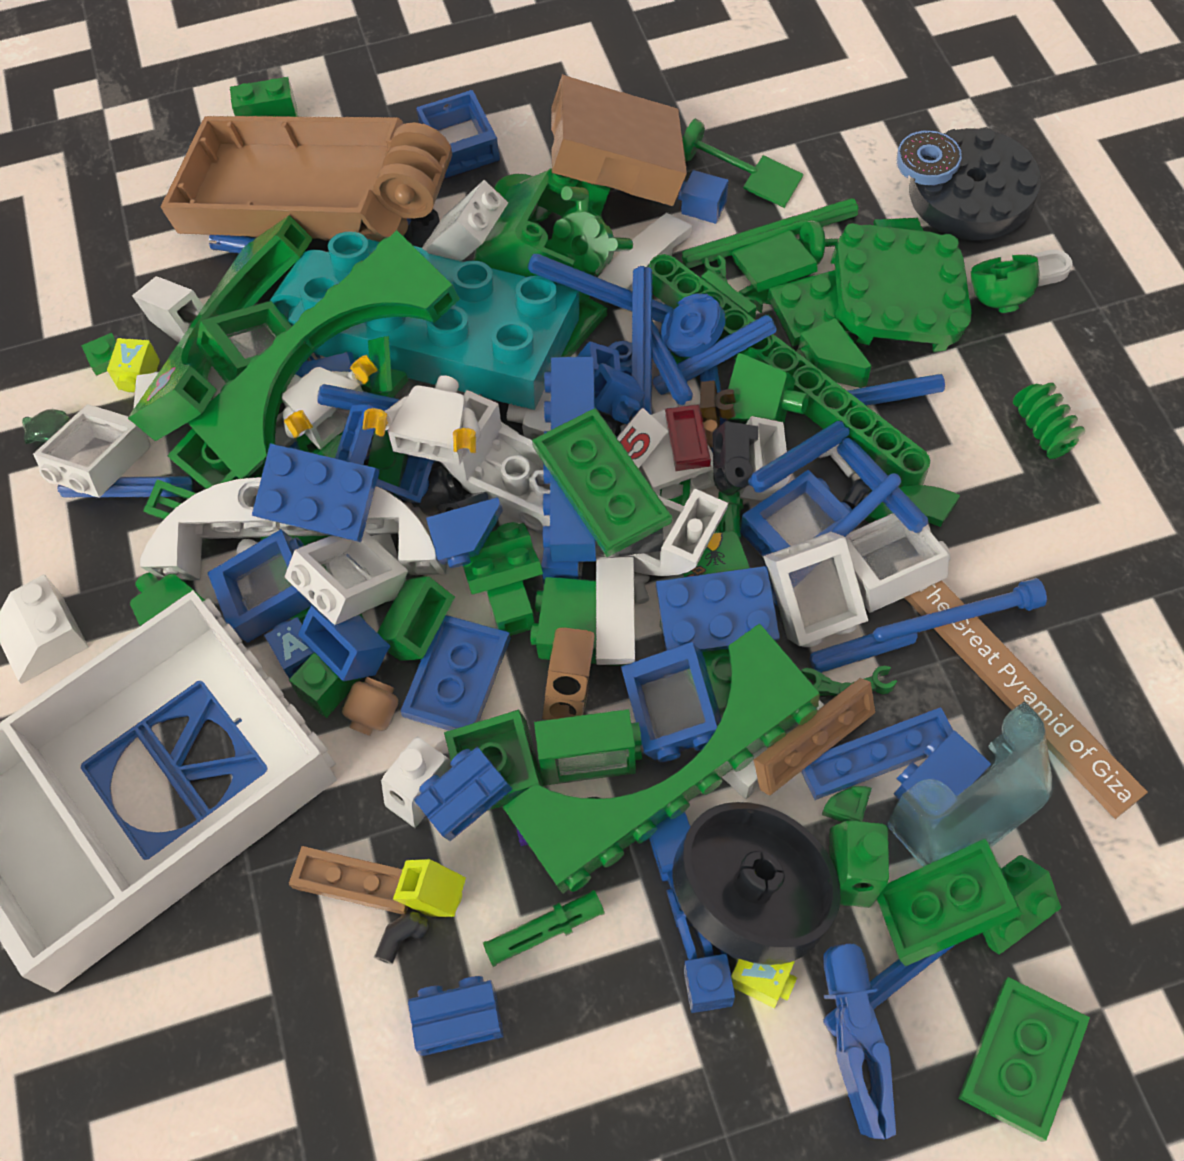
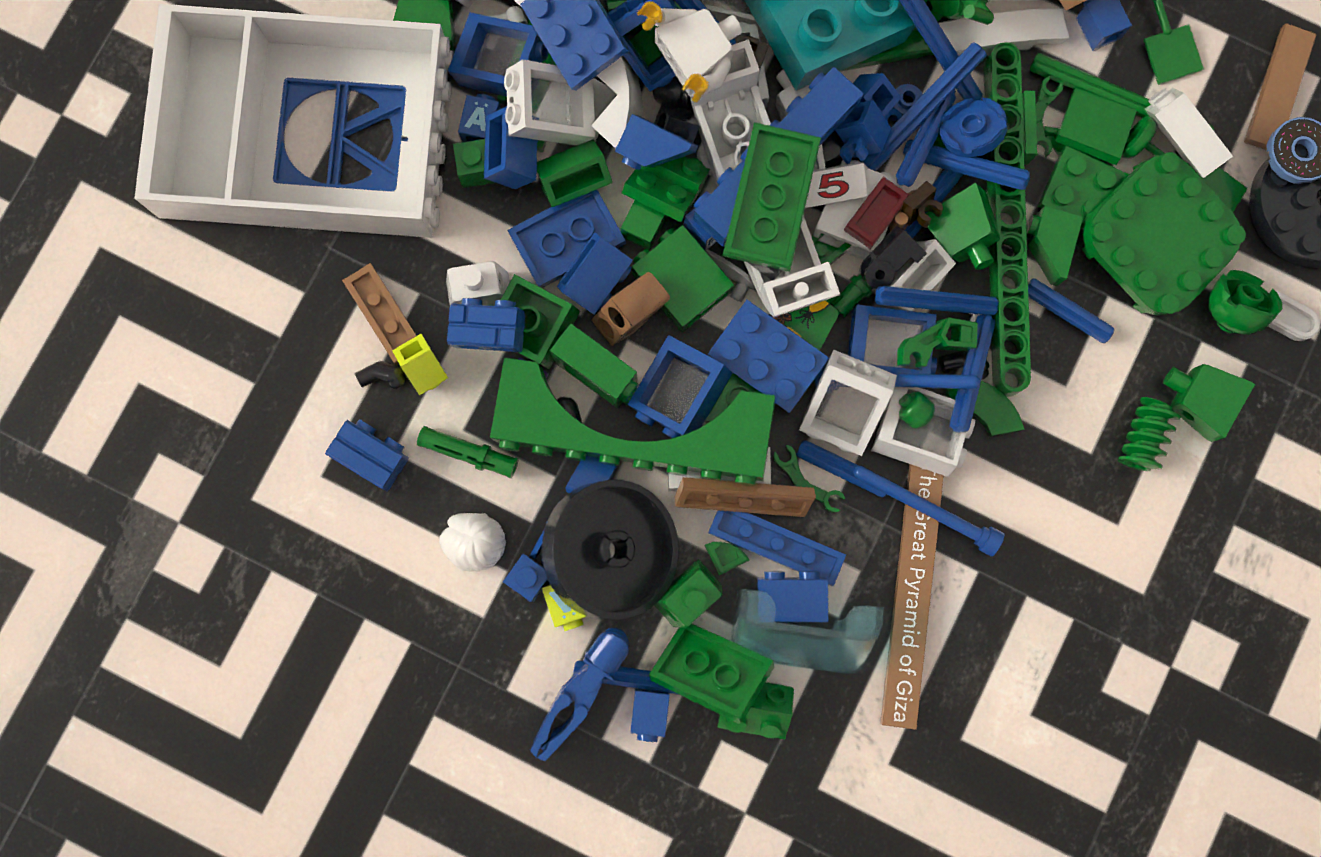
camera: 35 degrees right, 20 degrees up
(370, 706) = (492, 208): medium nougat head -> none
(511, 675) = (595, 274): none -> blue brick
(615, 611) = (701, 294): white tile -> none
(627, 1001) = (473, 541): none -> white hair
(832, 475) = (921, 345): none -> green piece
(840, 202) = (1187, 131): none -> white brick
(865, 144) = (1280, 84): none -> medium nougat tile
(872, 545) = (916, 409): none -> green piece
(934, 999) = (649, 714): none -> blue brick
(1024, 1059) = (666, 794): green plate -> none
(1058, 357) = (1208, 399): none -> green torso

